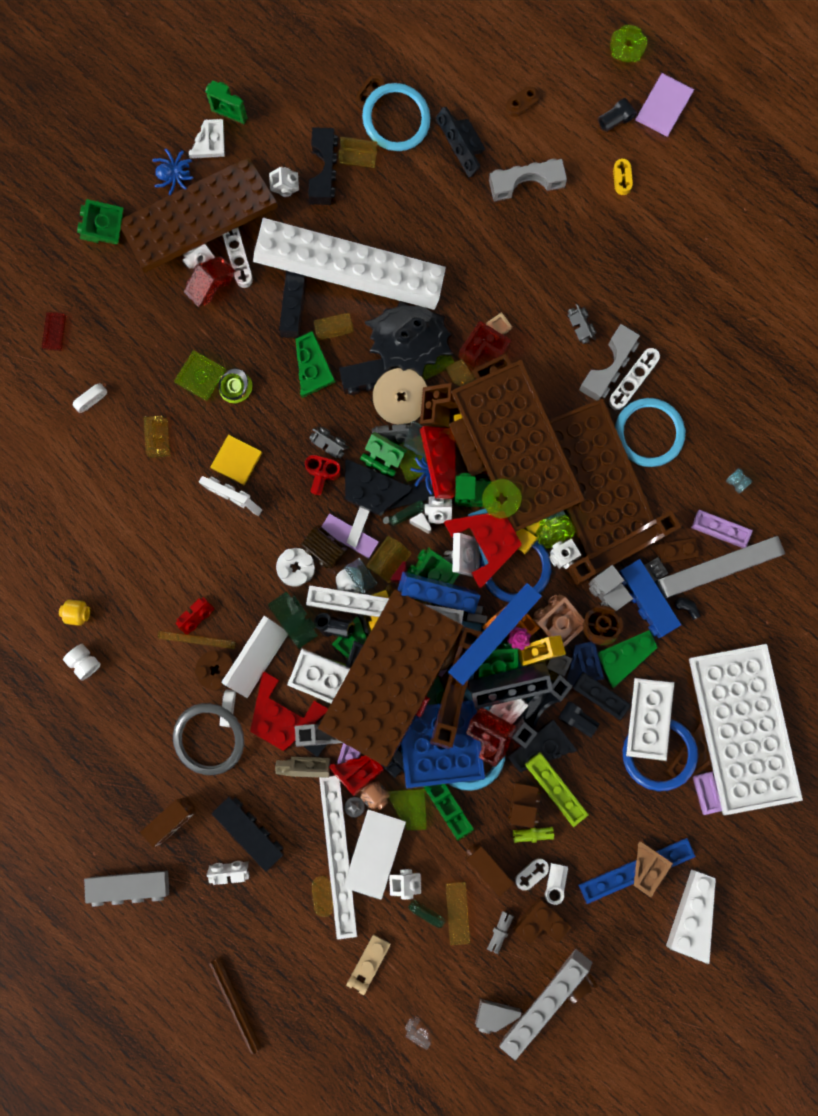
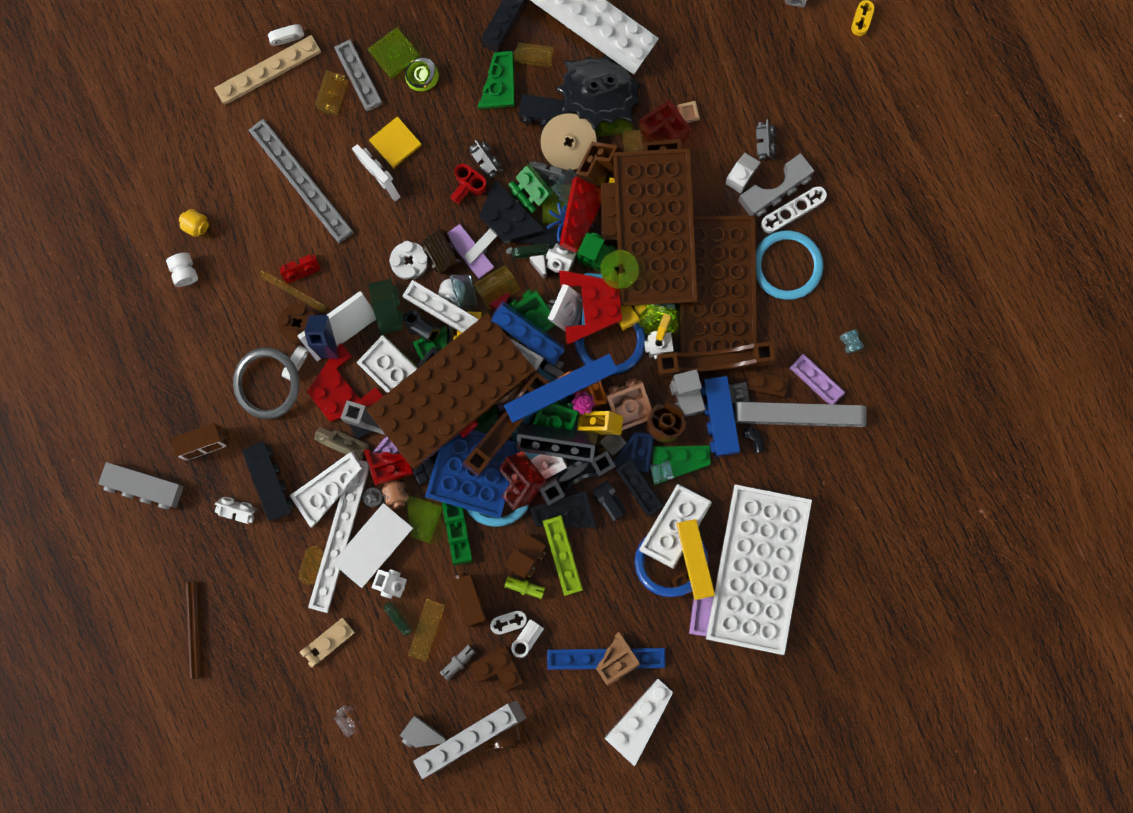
camera: 25 degrees right, 0 degrees up
(85, 438) = (267, 70): none -> tan plate
(161, 531) = (301, 181): none -> light grey tile
(175, 410) = (358, 75): none -> light grey tile
(245, 674) = (321, 337): none -> dark blue slope
(305, 820) = (323, 490): none -> white wing
(564, 537) = (663, 327): none -> yellow tile
(573, 362) = (742, 172): none -> white slope
(617, 673) = (666, 471): none -> clear light blue wheel
(684, 744) = (695, 559): none -> yellow tile

